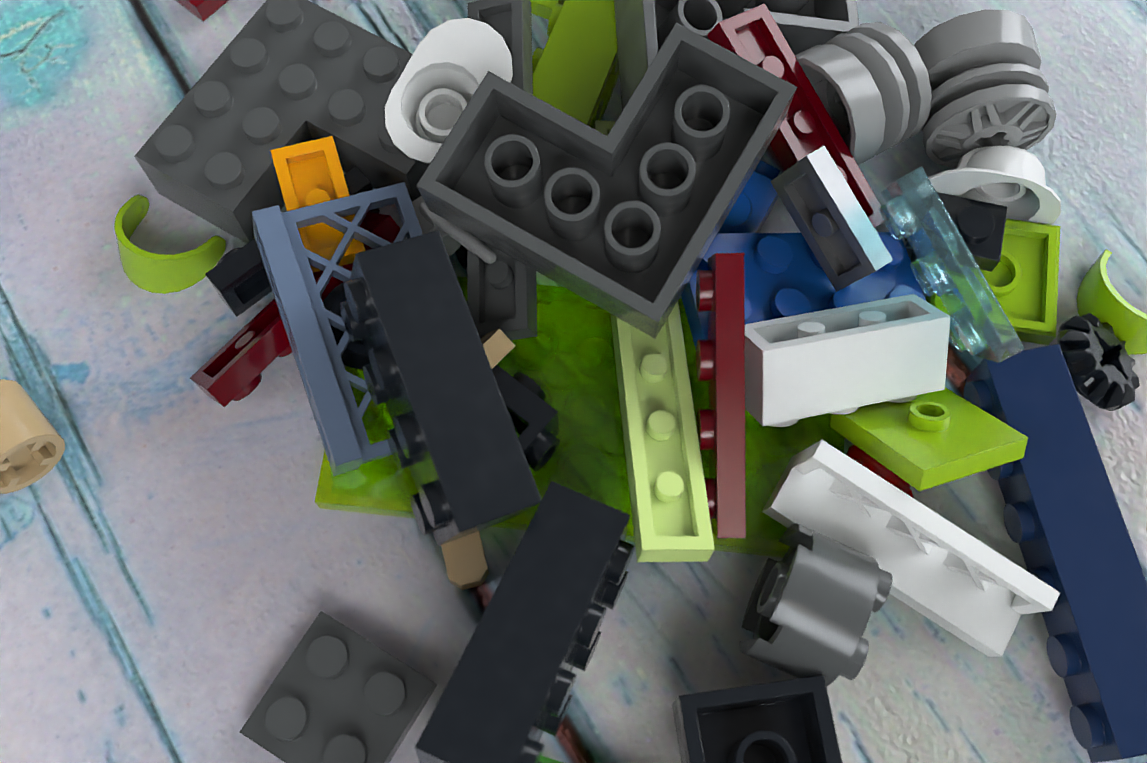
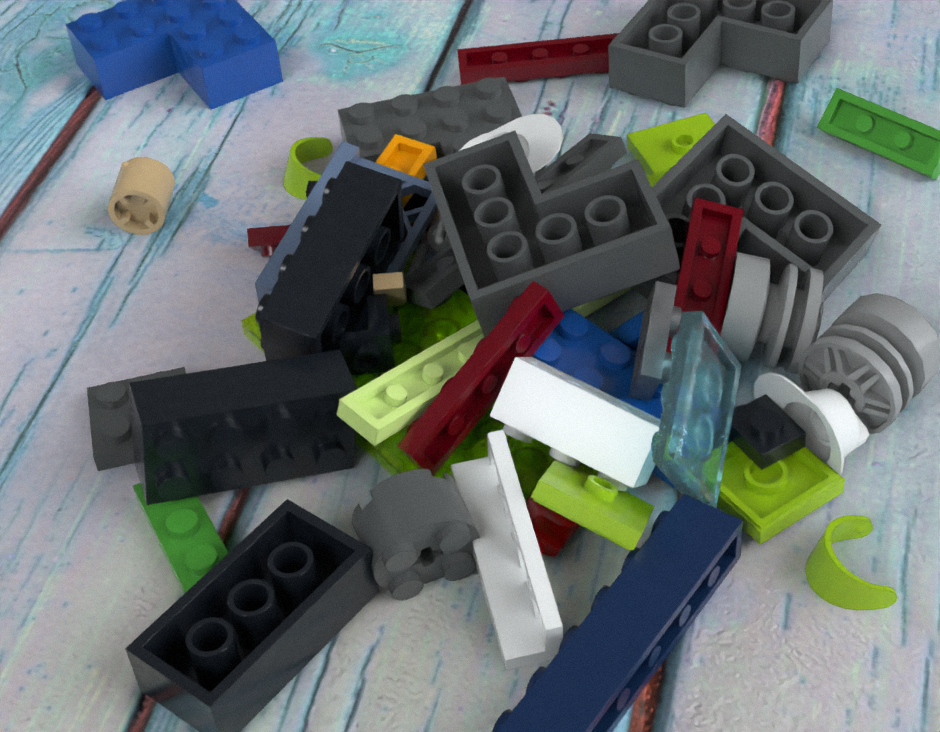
camera: 50 degrees right, 25 degrees down
(1098, 362) = (756, 575): black gear -> none

